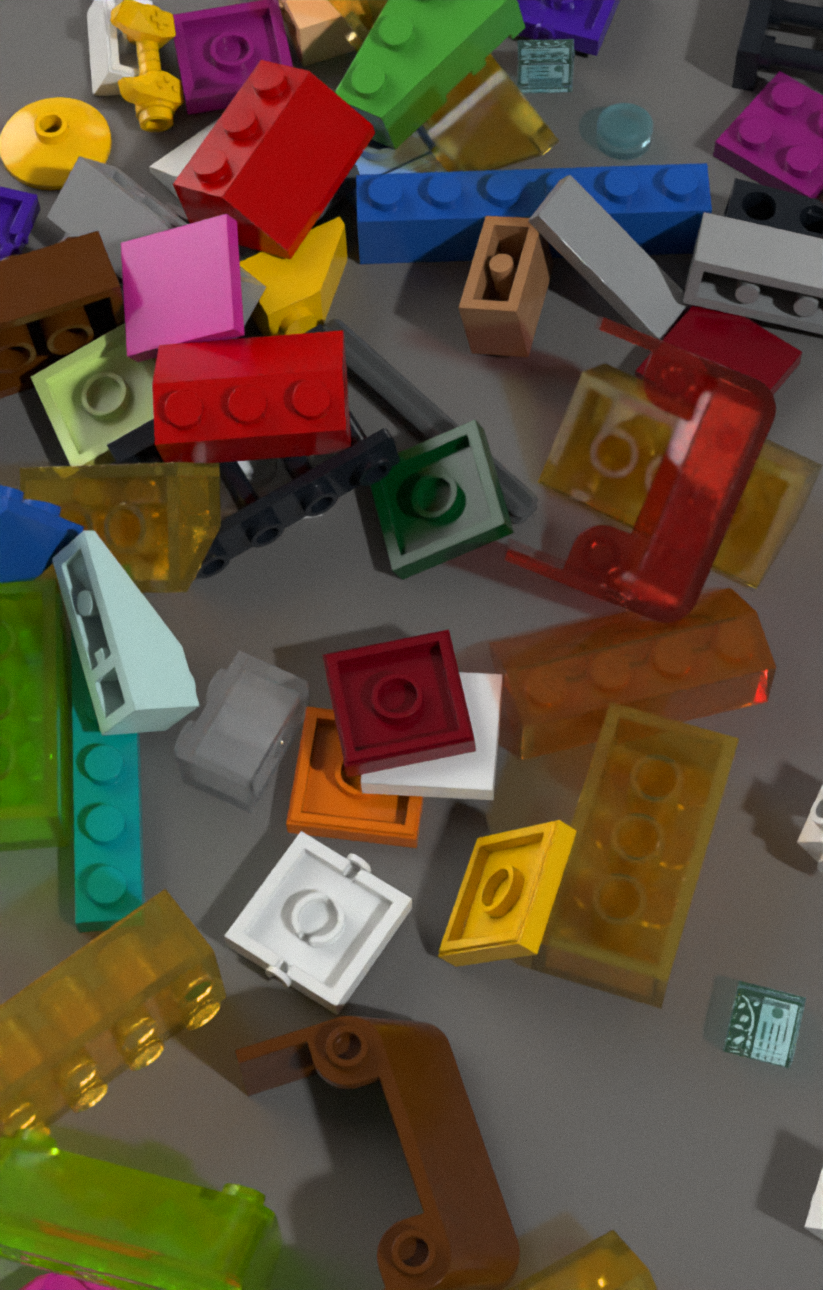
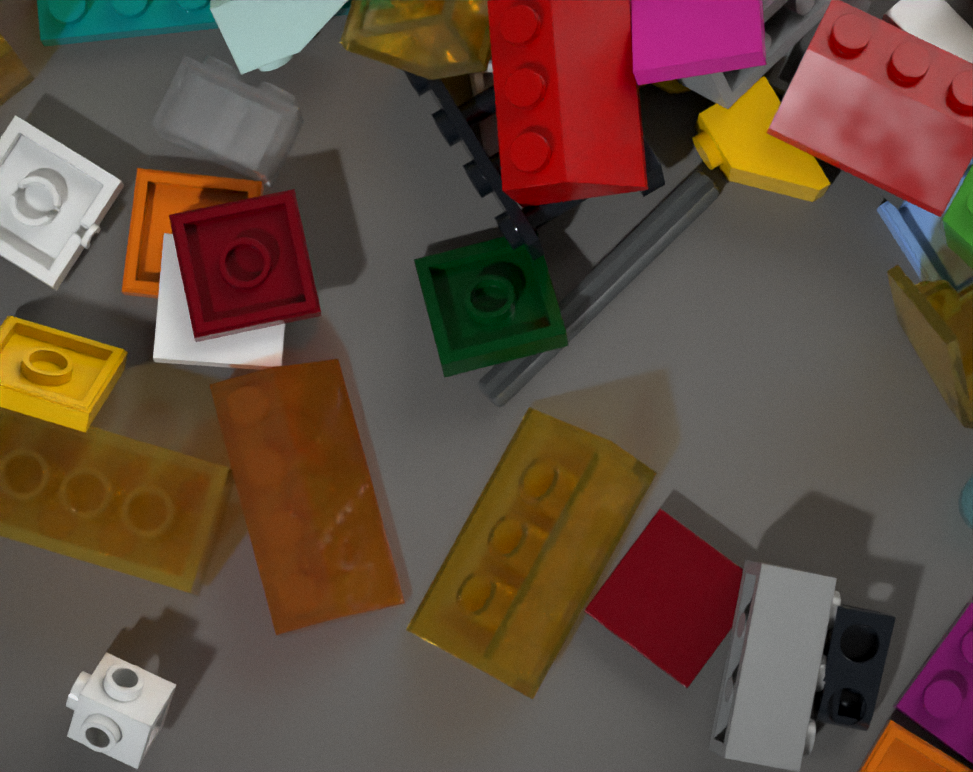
camera: 90 degrees right, 20 degrees up
(444, 212) = (856, 395): blue brick -> none
(505, 287) = (750, 366): medium nougat brick -> none
(608, 258) = (780, 475): light grey tile -> none
(691, 499) = (404, 521): clear red windscreen -> none

